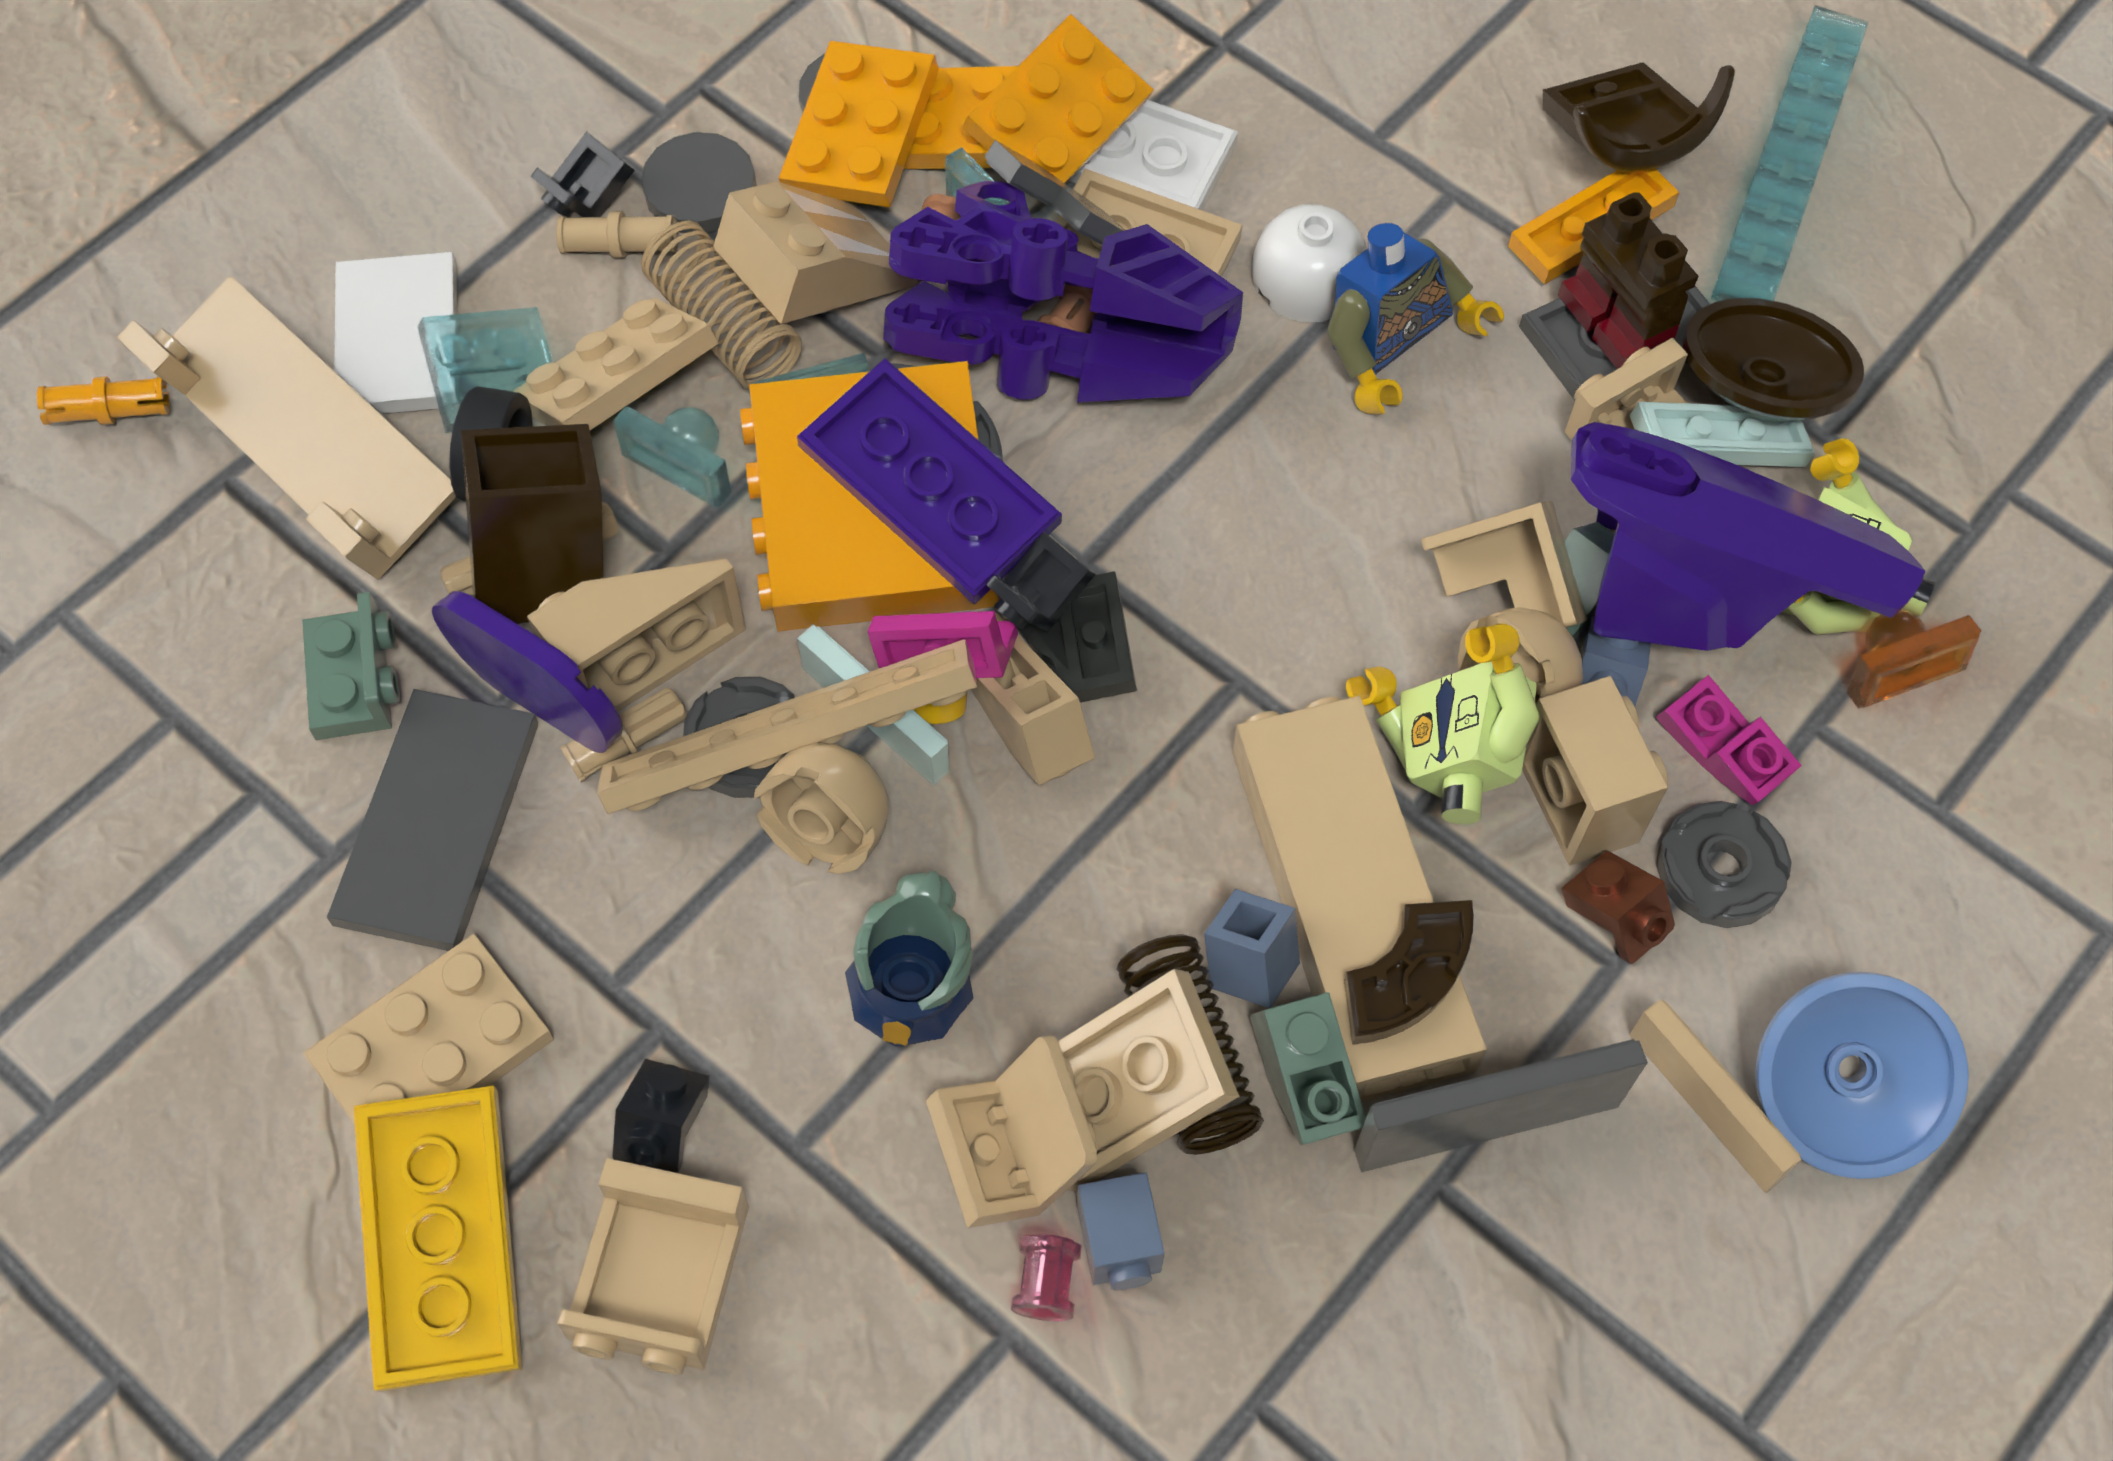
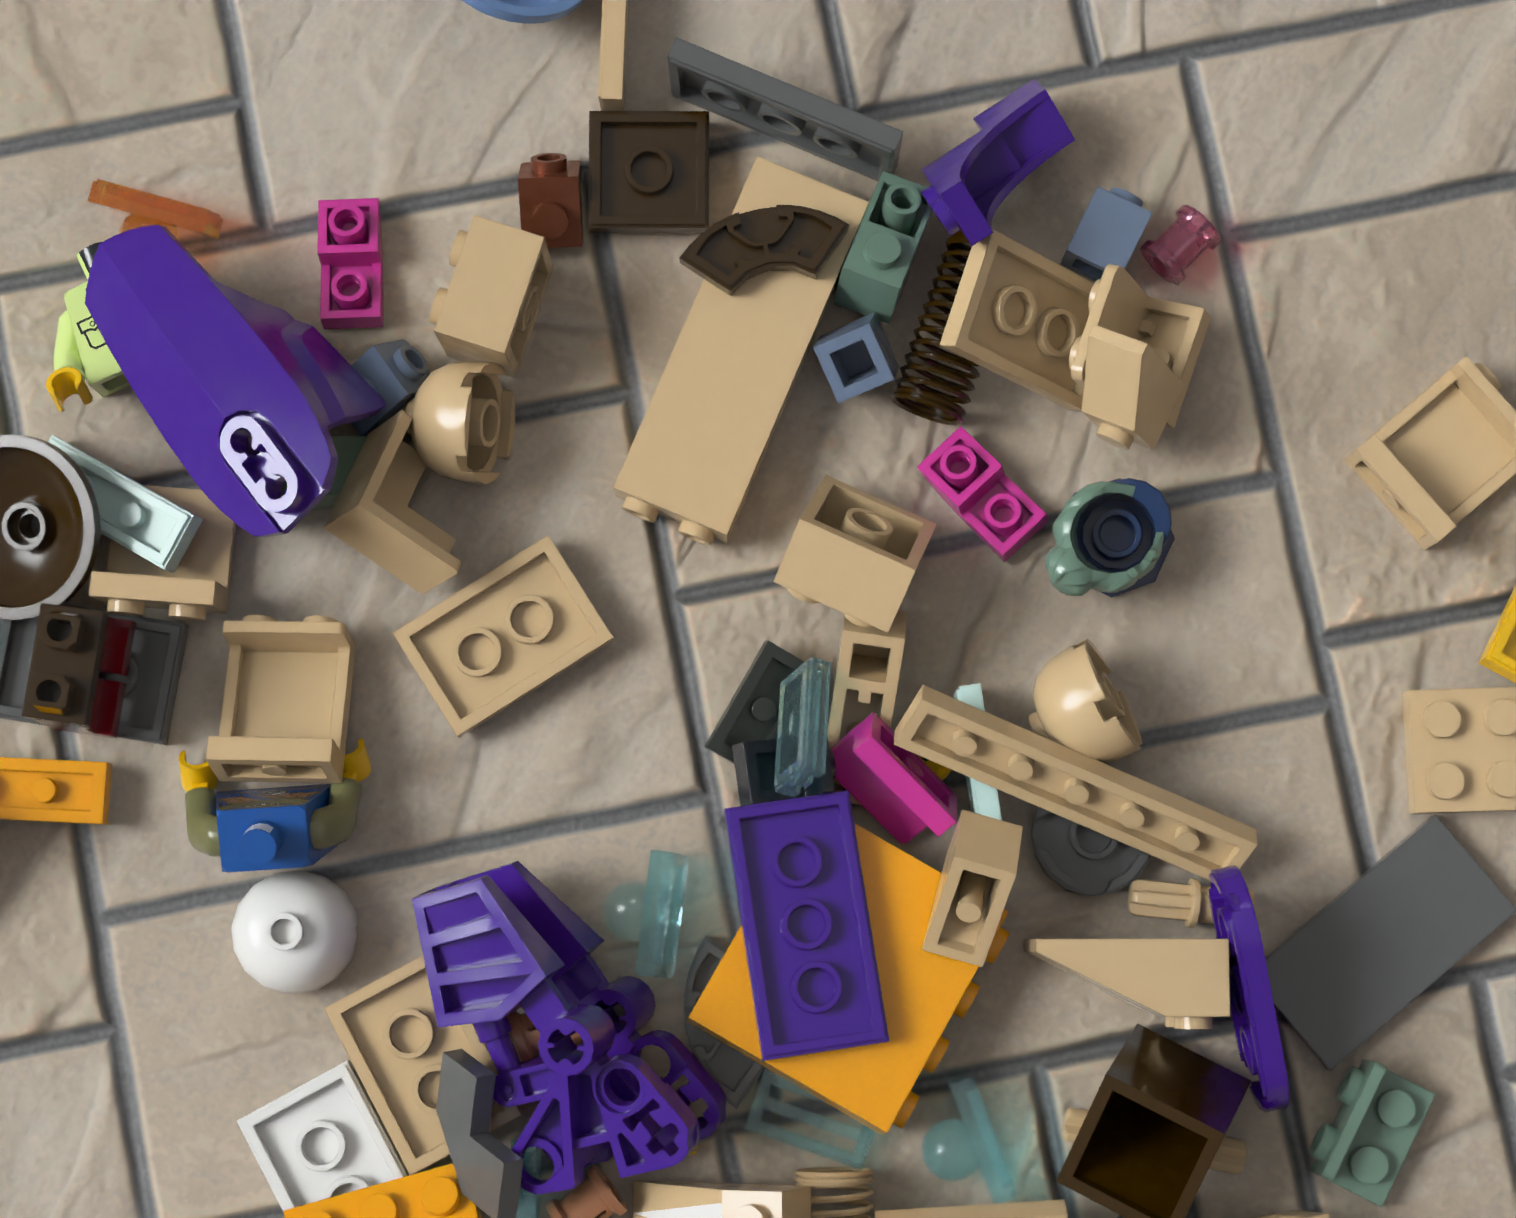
camera: 140 degrees left, 20 degrees up
(658, 1115) = (1368, 565): black bracket -> none
(817, 589) = (973, 888): none -> tan slope
(991, 1076) = (1127, 389): none -> tan slope
(1050, 609) = (802, 727): none -> clear light blue tile
(1050, 936) = (982, 494): none -> dark pink slope
(1055, 440) = (651, 913): none -> clear light blue tile
(1119, 779) = (854, 554): none -> tan brick
(1282, 1160) = (985, 168): none -> dark purple arch
(1343, 552) = (503, 636): none -> tan plate
(1460, 386) = (284, 701): none -> tan panel
(1461, 729) = (568, 403): yellowish green torso -> none
(1564, 986) = (648, 172): none -> dark brown plate
(1717, 897) = (432, 145): dark grey tile -> none

